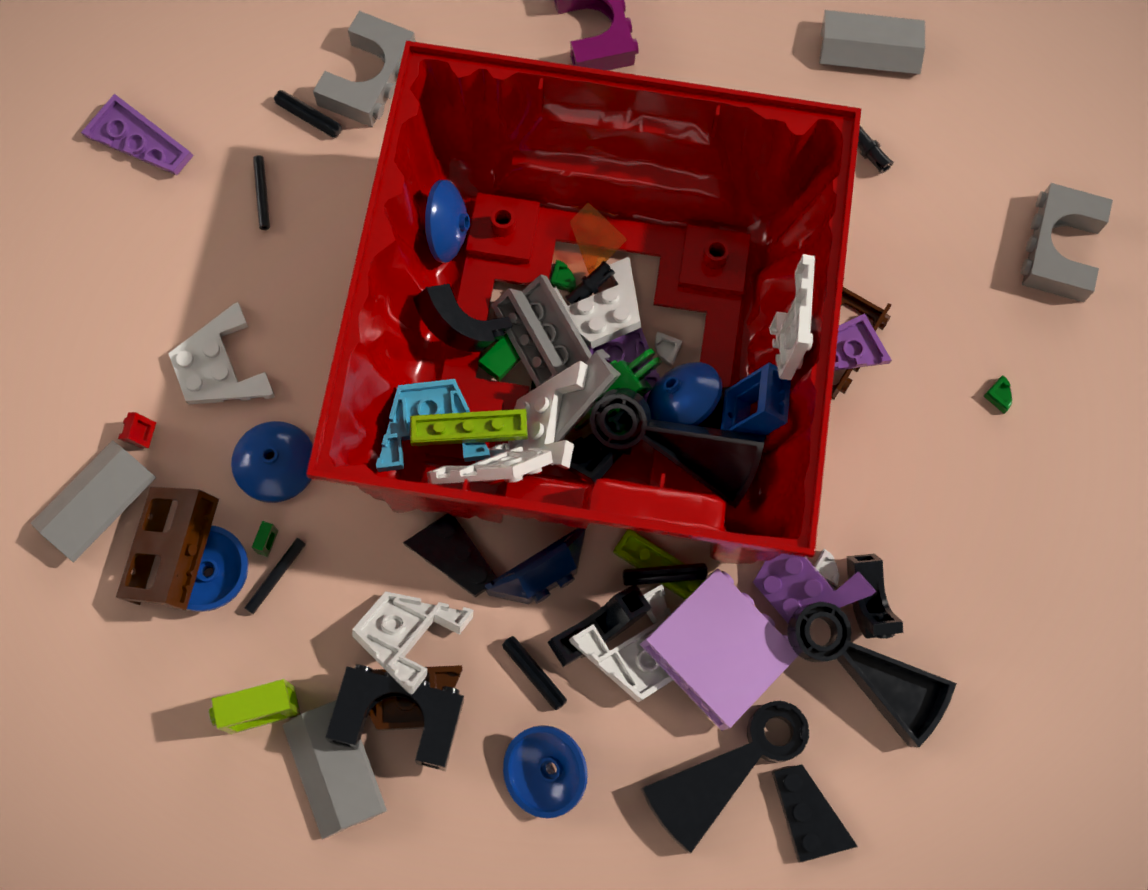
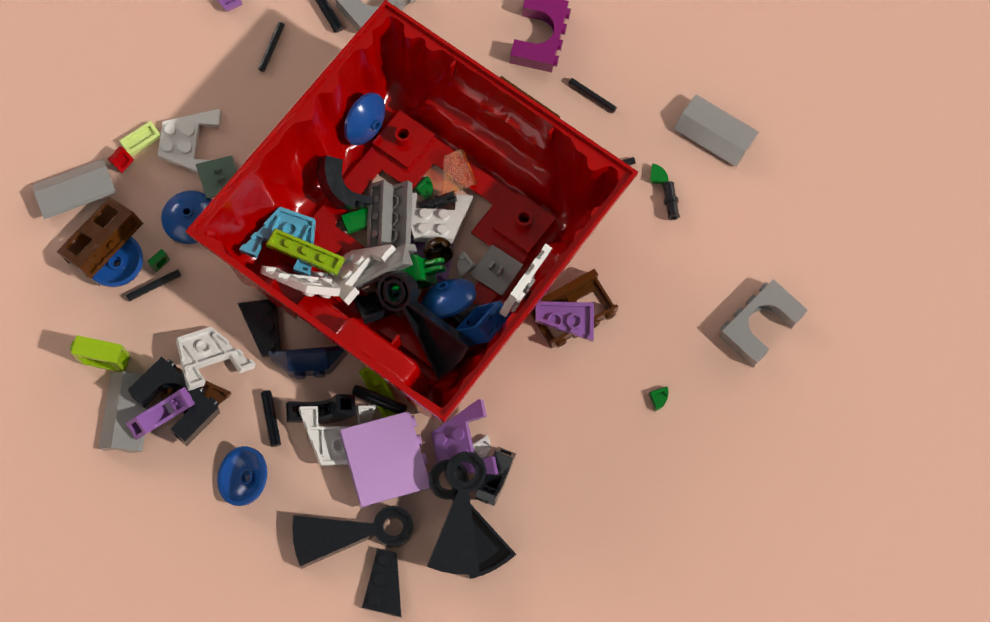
camera: 30 degrees right, 0 degrees up
(150, 390) = (140, 138): none -> yellowish green tile
(285, 389) = (215, 174): none -> sand green piece
(386, 745) = (160, 413): none -> medium lavender arch
(631, 342) = (438, 248): none -> dark brown hair
(699, 68) = (591, 94): none -> black piece
(715, 334) = (496, 270): none -> light grey piece
(881, 712) = (456, 544): none -> black piece

